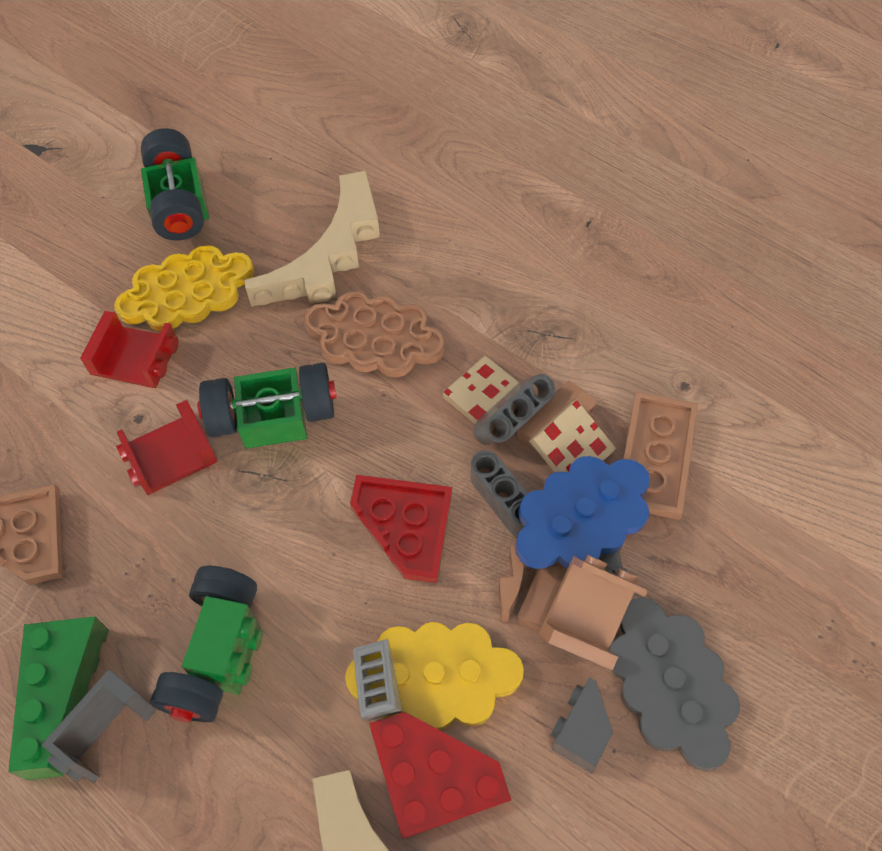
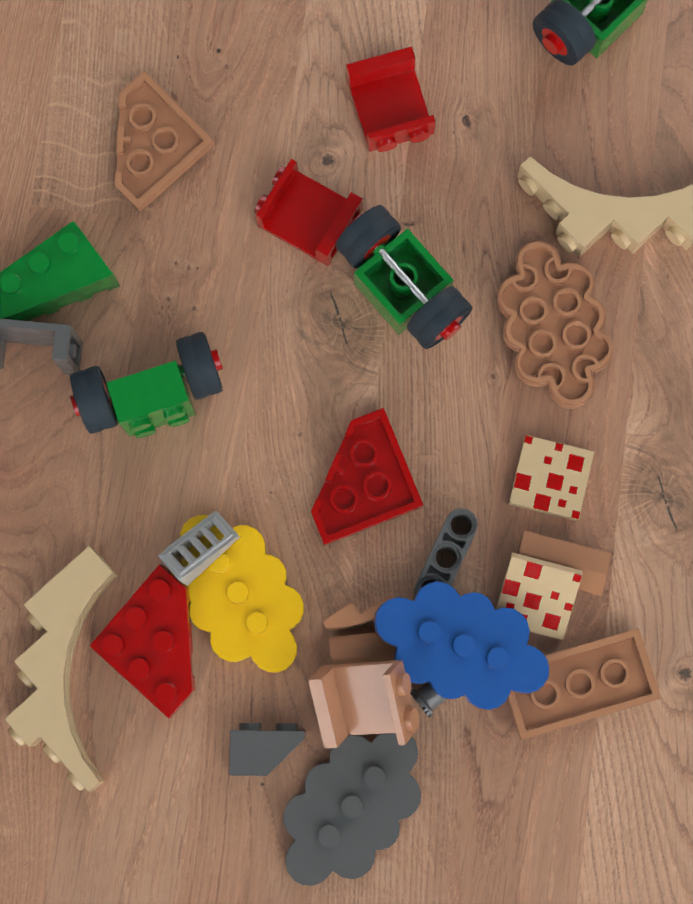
camera: 60 degrees right, 20 degrees up
(184, 288) = (494, 98): yellow plate -> none
(527, 406) = (553, 531): dark grey beam -> none

